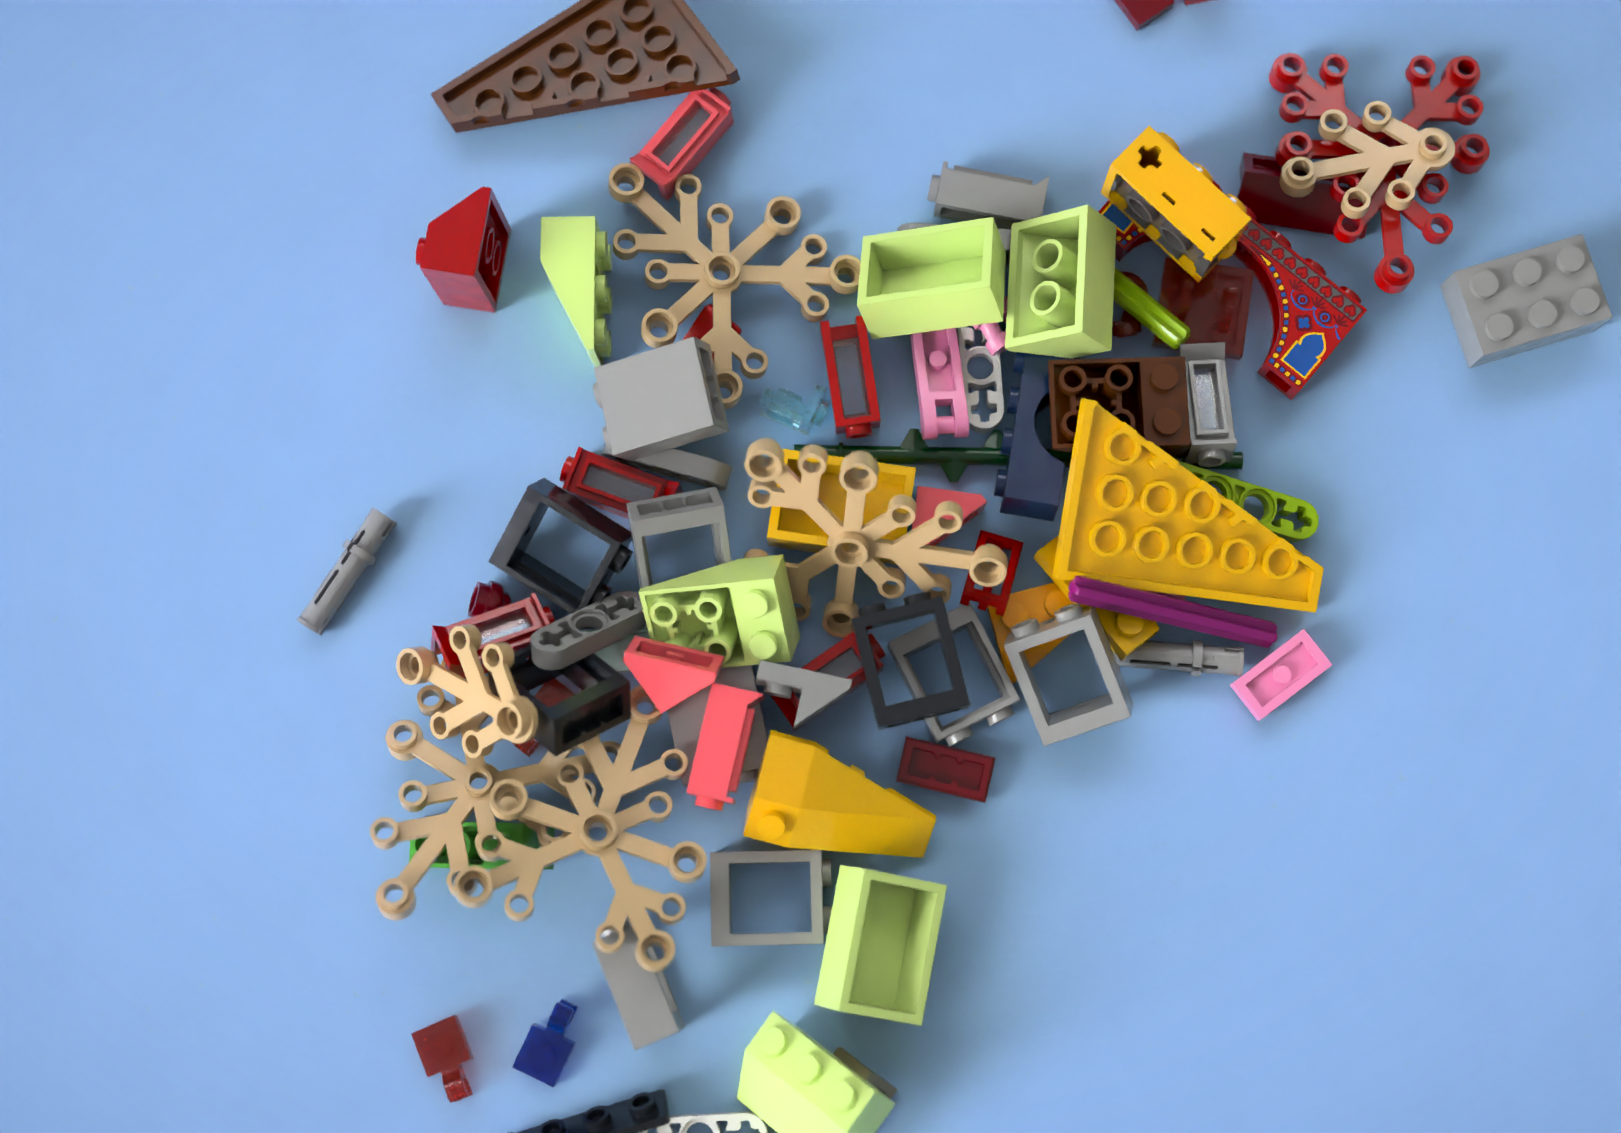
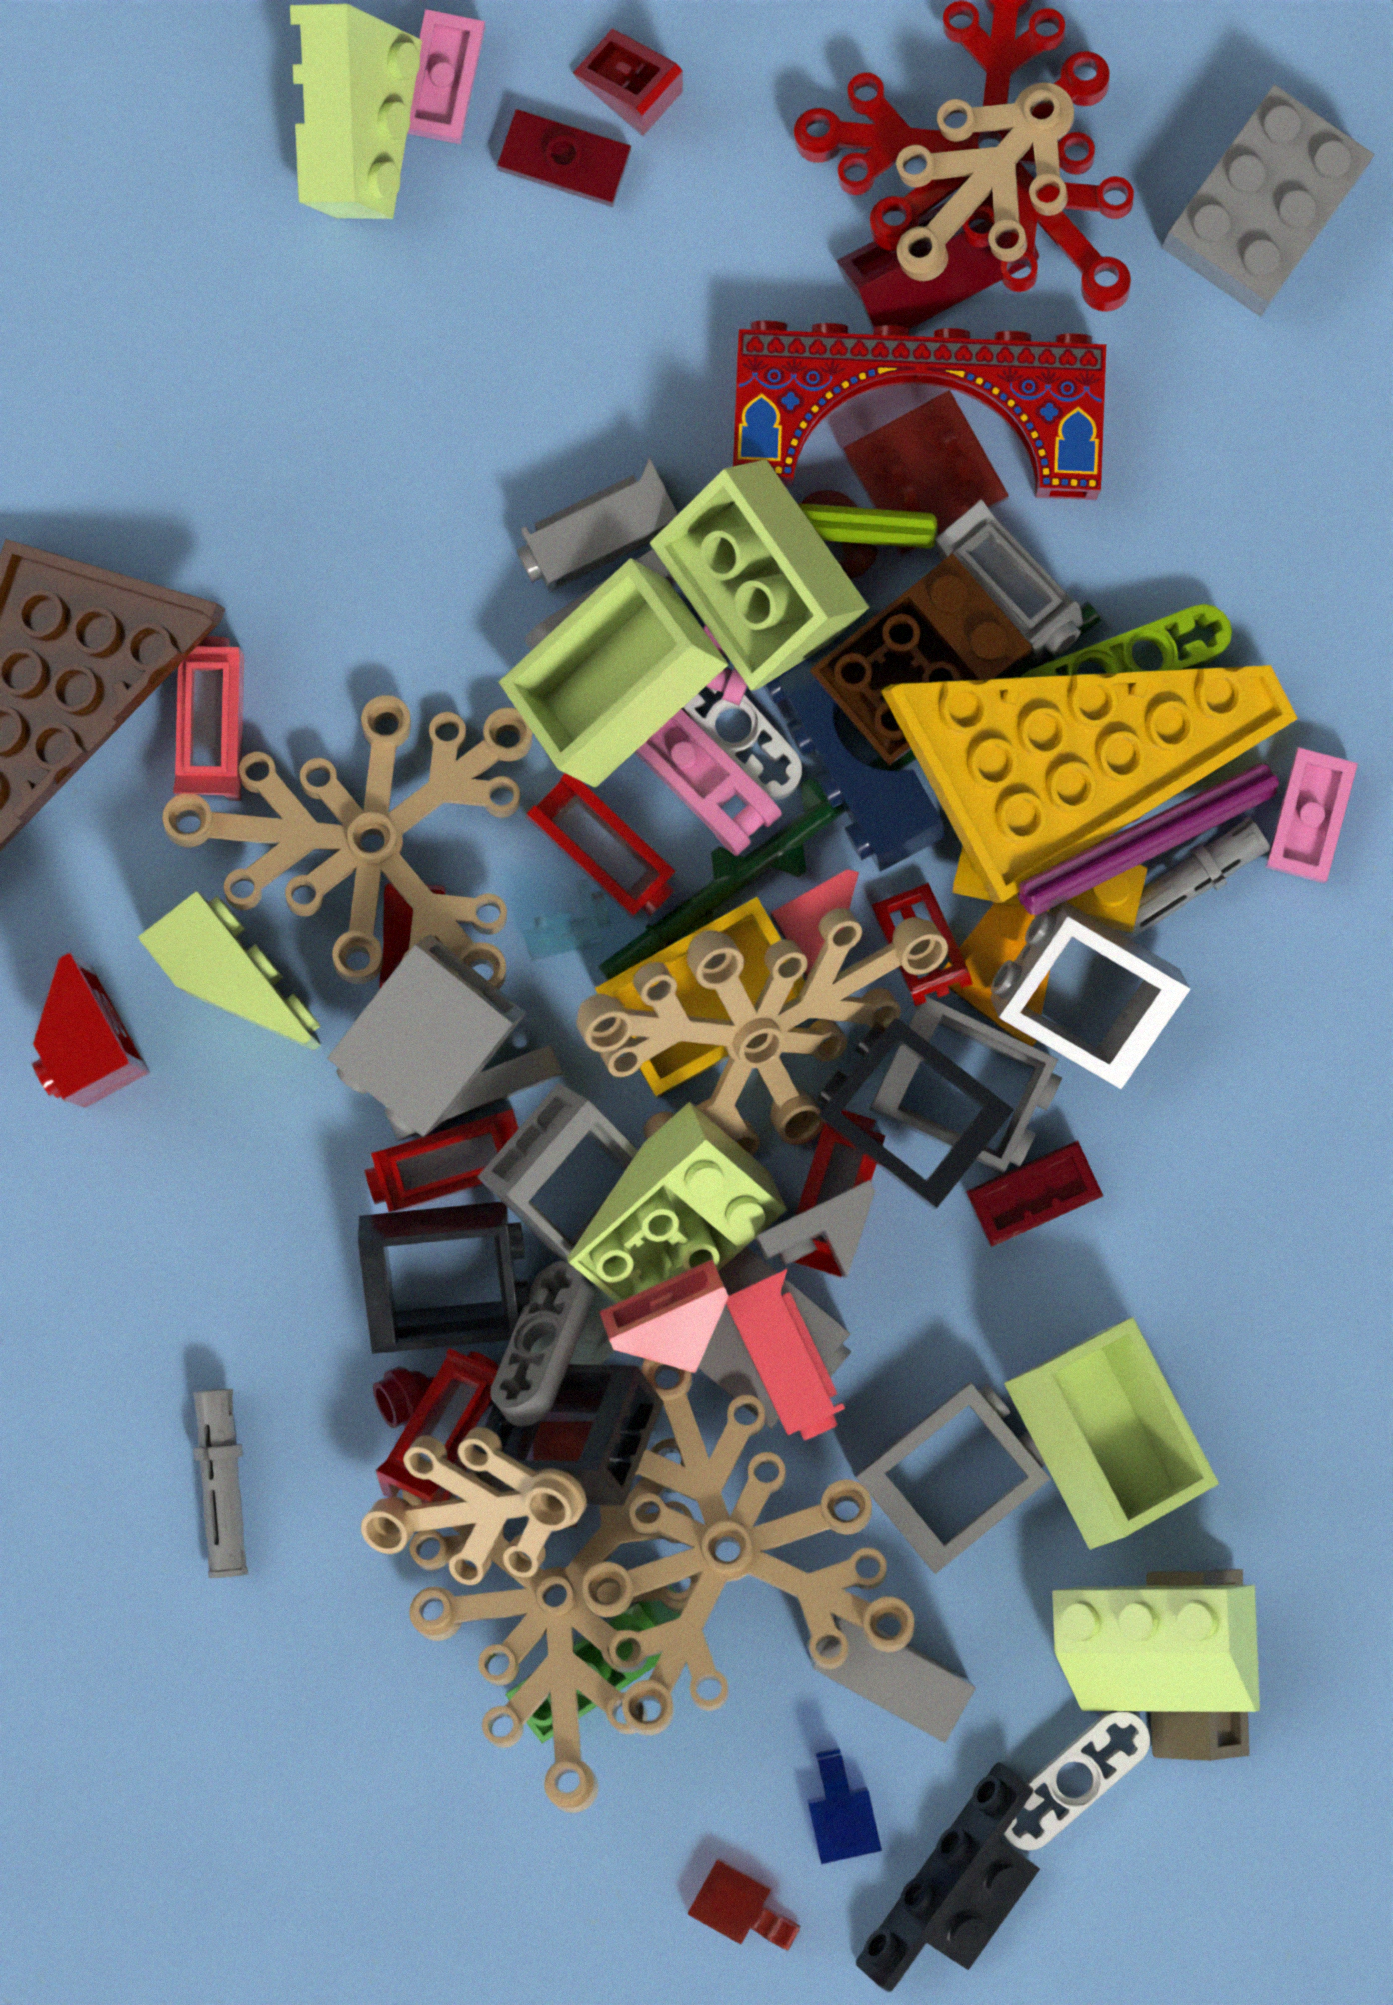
camera: 45 degrees left, 5 degrees up
(821, 804) = (934, 1334): yellow wedge -> none
(1175, 203) = (819, 392): yellow piece -> none

